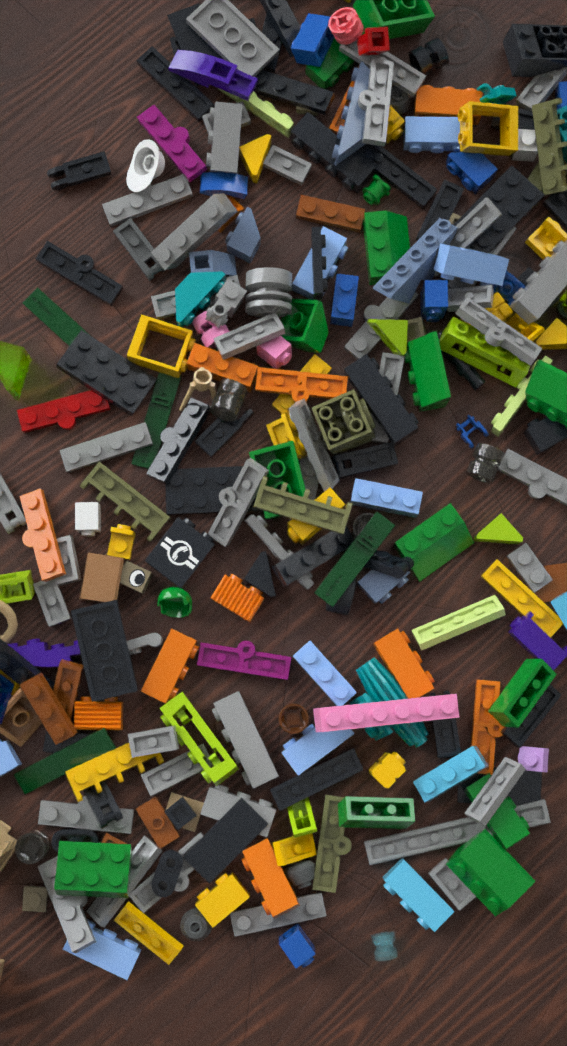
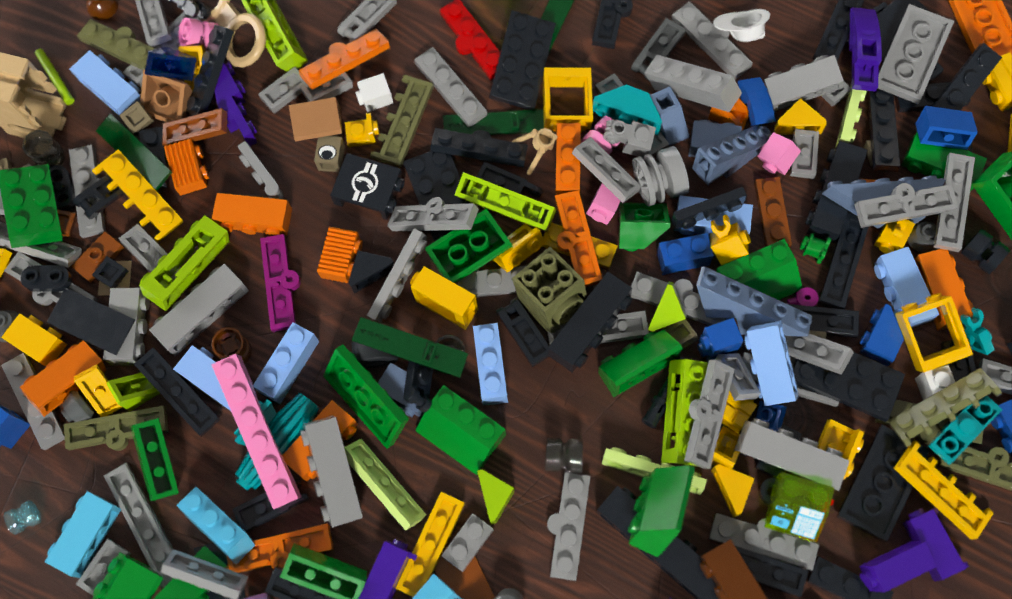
camera: 80 degrees right, 10 degrees down
(29, 749) = (136, 117): none -> dark tan plate
(48, 708) = (175, 115): dark orange plate -> none
(104, 650) = (244, 144): black plate -> none
(153, 741) = (168, 218): light grey plate -> none
(172, 142) = (779, 41): magenta hinge -> none
(175, 602) = (317, 197): green hair -> none
(228, 400) = (536, 174): clear smoke wheel -> none
(247, 433) = (505, 202): none -> lime brick
(269, 224) = (729, 153): none -> sand blue slope
(282, 187) = (778, 154): none -> bright pink brick
(302, 508) = (441, 272): olive hinge -> none
(312, 556) = (402, 307): black plate -> none
(313, 443) = (501, 284): light grey hinge -> none
(345, 25) = (974, 148): coral wheel -> none
(350, 258) = (728, 241): none -> yellow brick
(373, 42) = (969, 177): red brick -> none
(380, 613) = (365, 396): none -> green plate
(388, 768) = (202, 456): yellow brick -> none
(415, 222) = (800, 296): none -> magenta piece
(438, 659) = (332, 471): none -> light grey brick
(477, 425) = (589, 426): blue piece -> none

